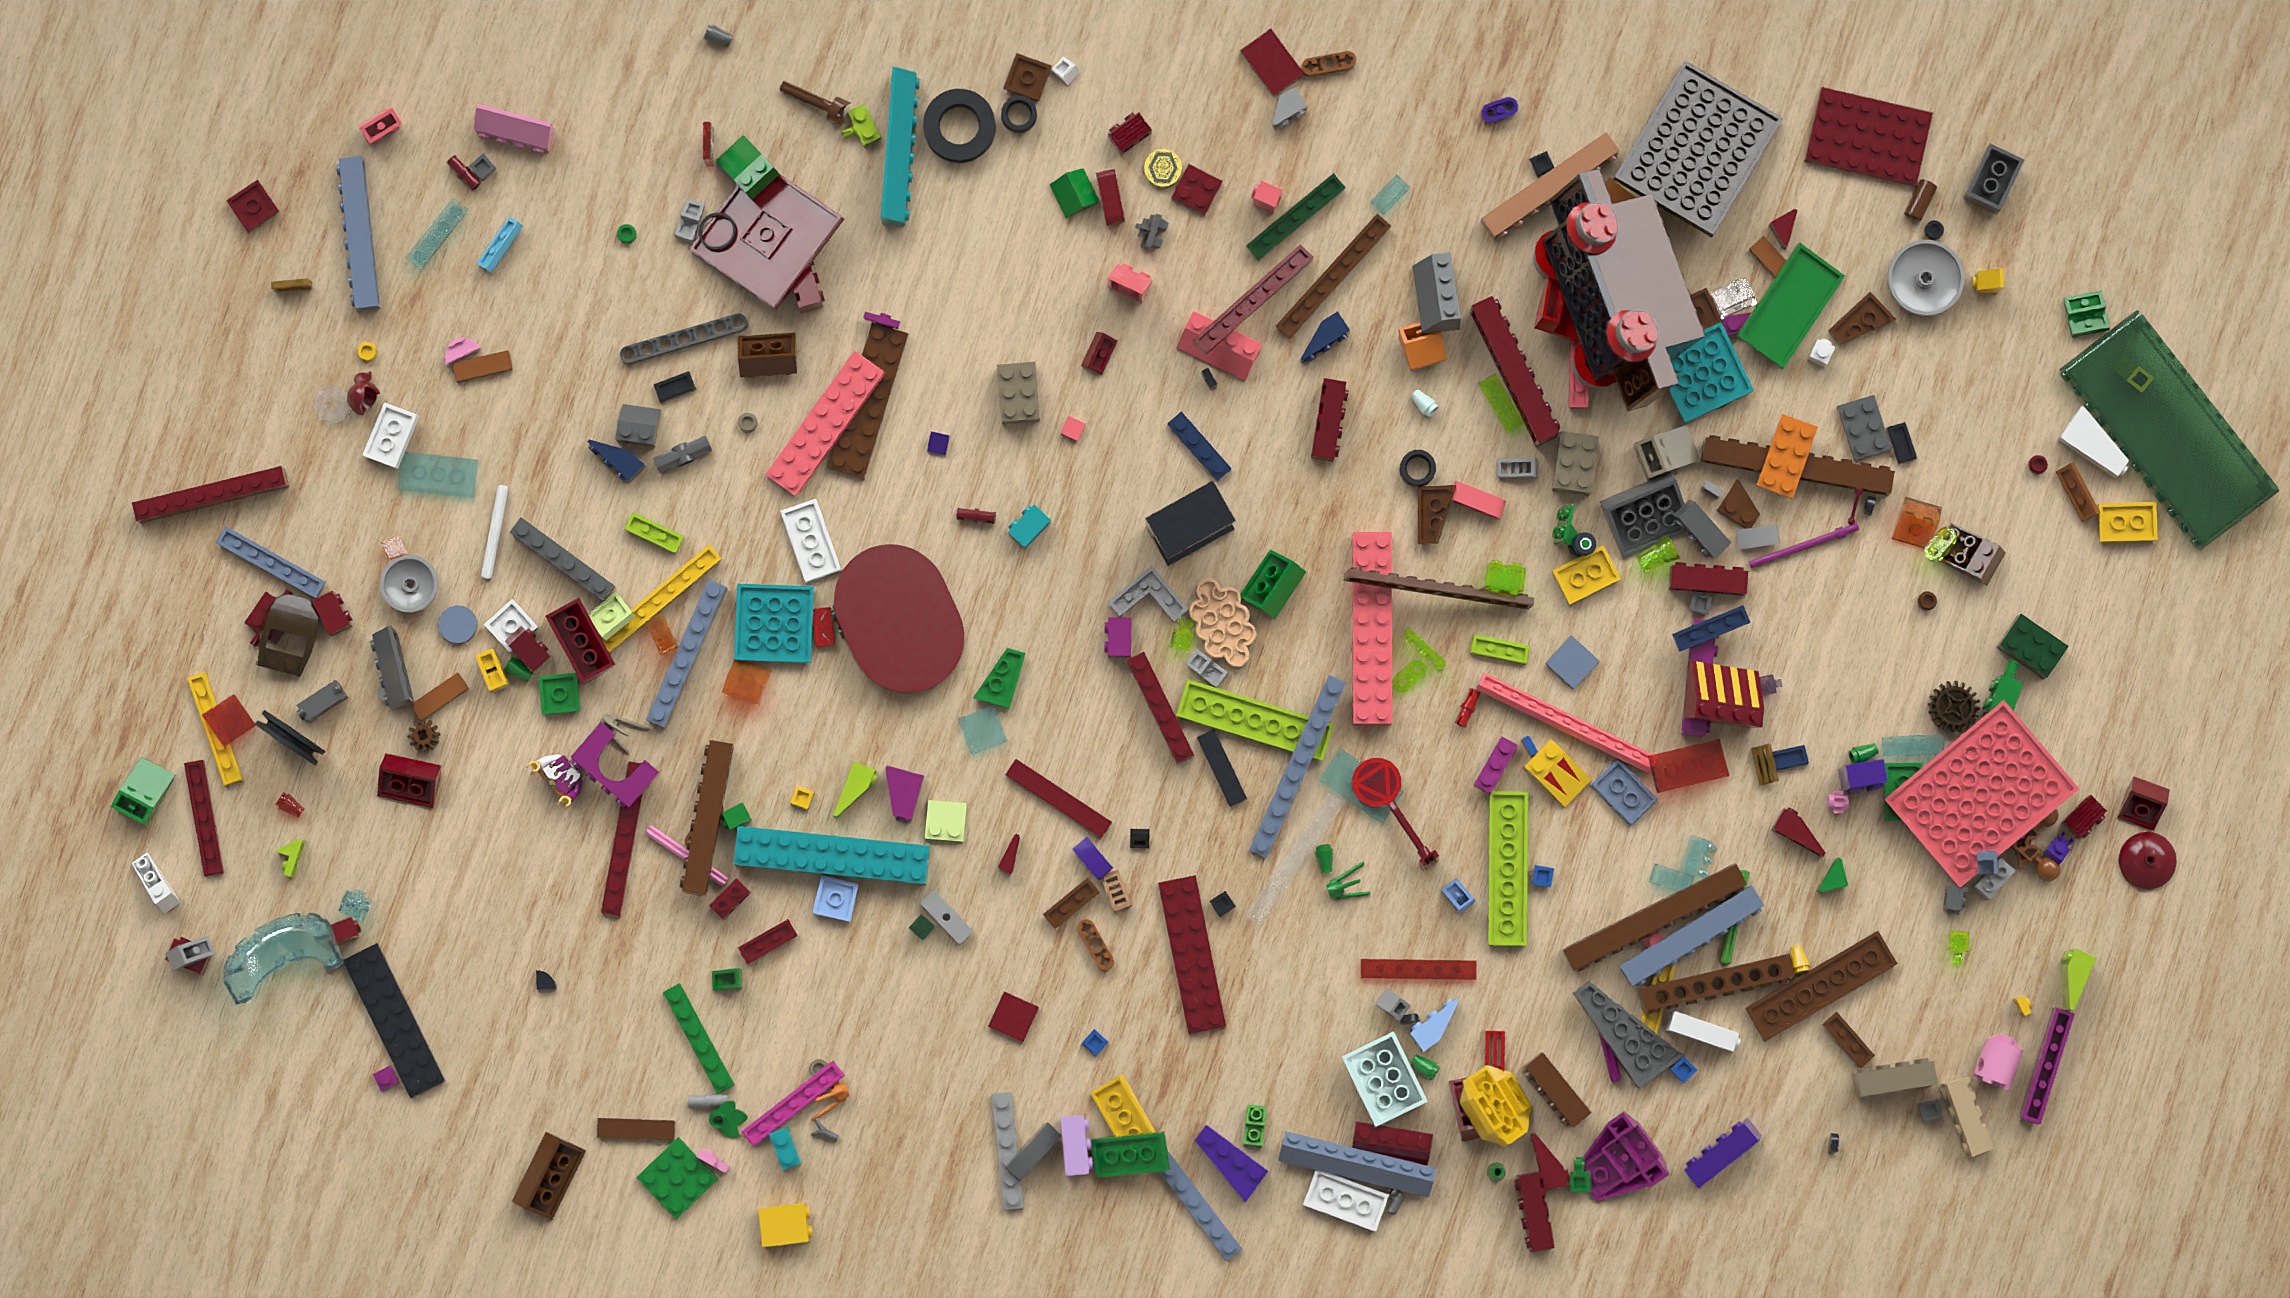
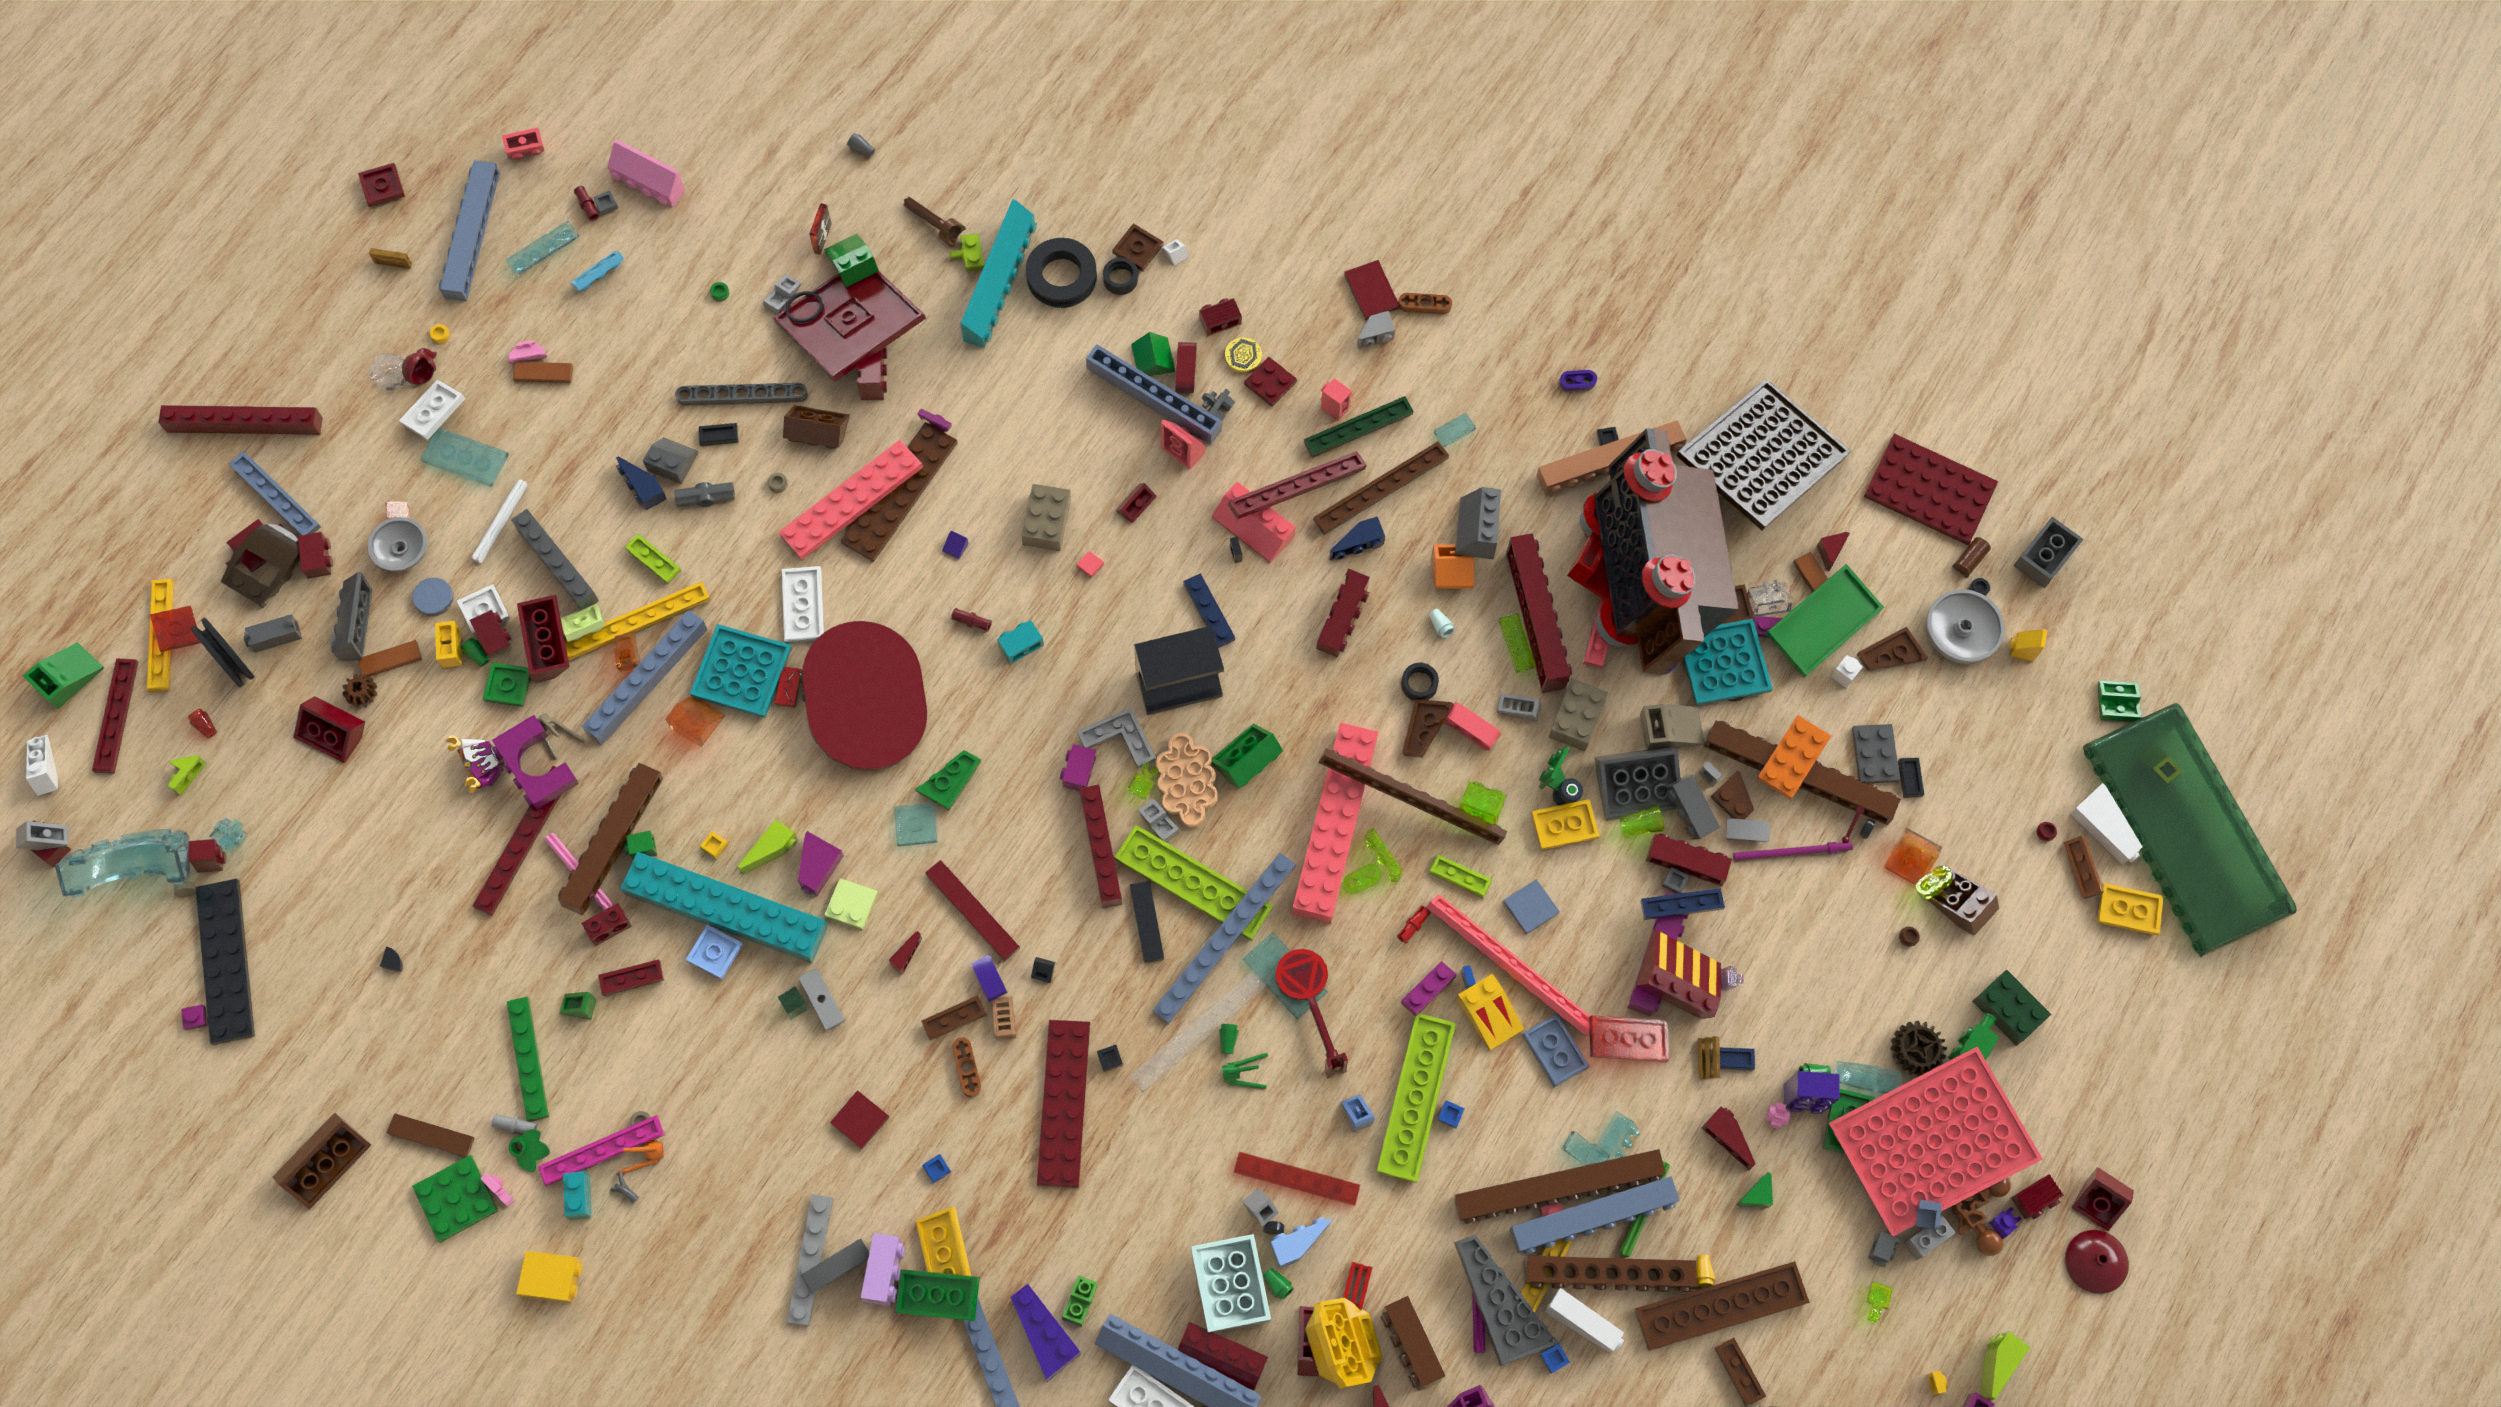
camera: 10 degrees right, 15 degrees down
(1087, 236) = (1153, 394): none -> sand blue brick

